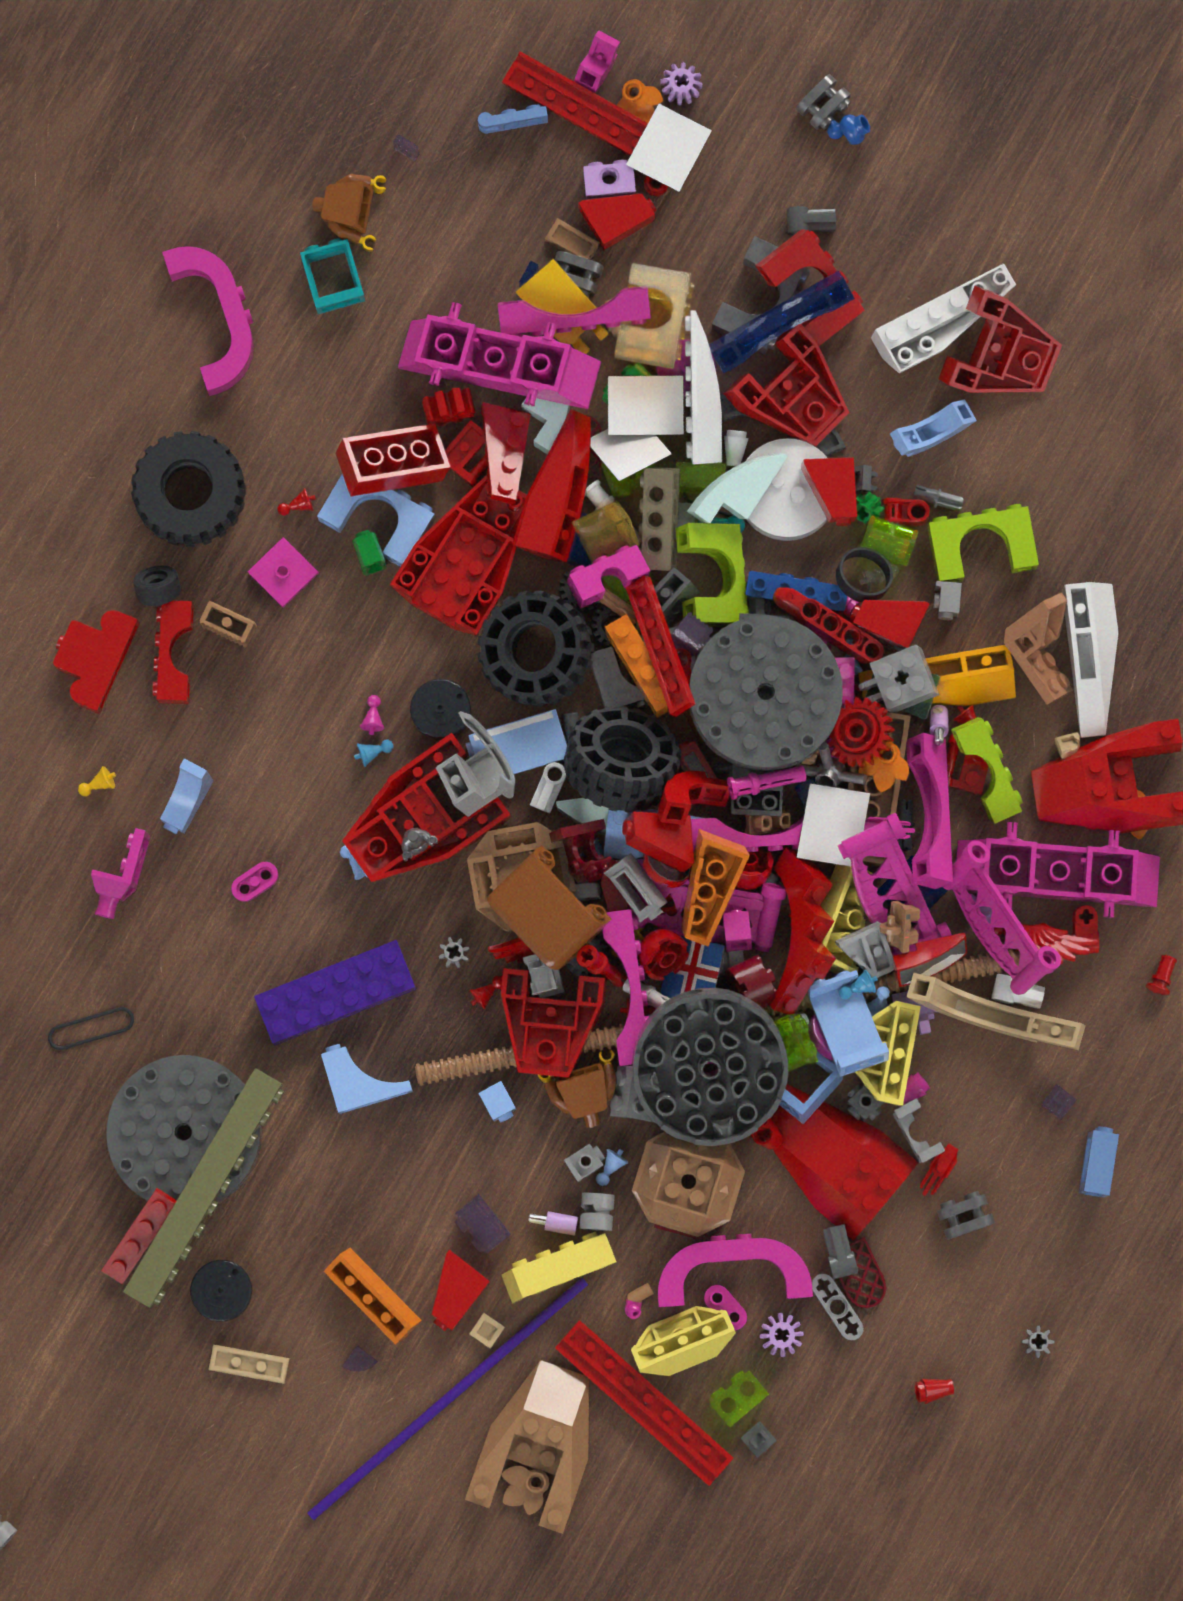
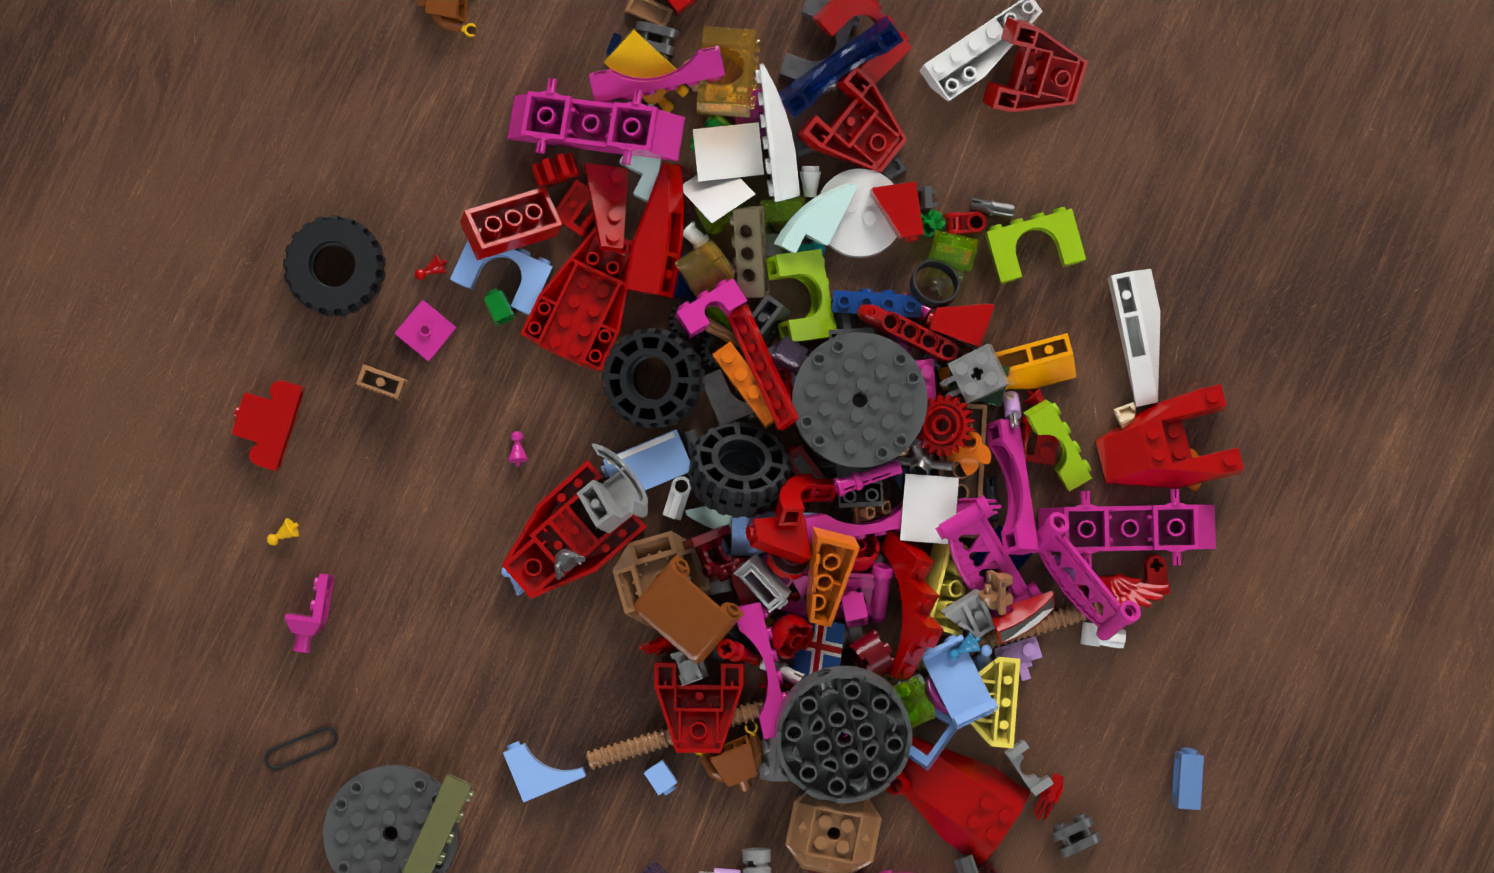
camera: 10 degrees left, 5 degrees up
(157, 585) = (316, 354): black tyre -> none
(174, 620) = (335, 383): red arch -> none
(187, 797) = (361, 540): light blue arch -> none
(199, 262) = (364, 149): dark pink arch -> none
(254, 881) = (430, 606): dark pink plate -> none
(335, 992) = (509, 697): dark purple brick -> none
(339, 299) = (447, 84): teal window -> none
(369, 752) = (518, 481): dark azure piece -> none
(437, 708) = (573, 438): black wheel -> none
(455, 960) = (615, 648): light grey gear -> none
(483, 994) = (639, 684): red piece -> none
(577, 1169) = (733, 825): light grey brick -> none
(613, 1163) = (767, 818): light blue piece -> none
(858, 1110) = (972, 741): dark grey brick -> none
(915, 1088) = (1023, 728): dark pink cone -> none
(933, 430) = (982, 147): light blue arch -> none
(947, 599) = (1009, 297): light grey brick -> none
(992, 1015) = (1086, 659): tan arch -> none
(1027, 644) = (1083, 332): nougat bracket -> none
(1058, 1102) = (1146, 727): clear purple tile -> none
(1161, 978) = (1226, 609): red pin -> none

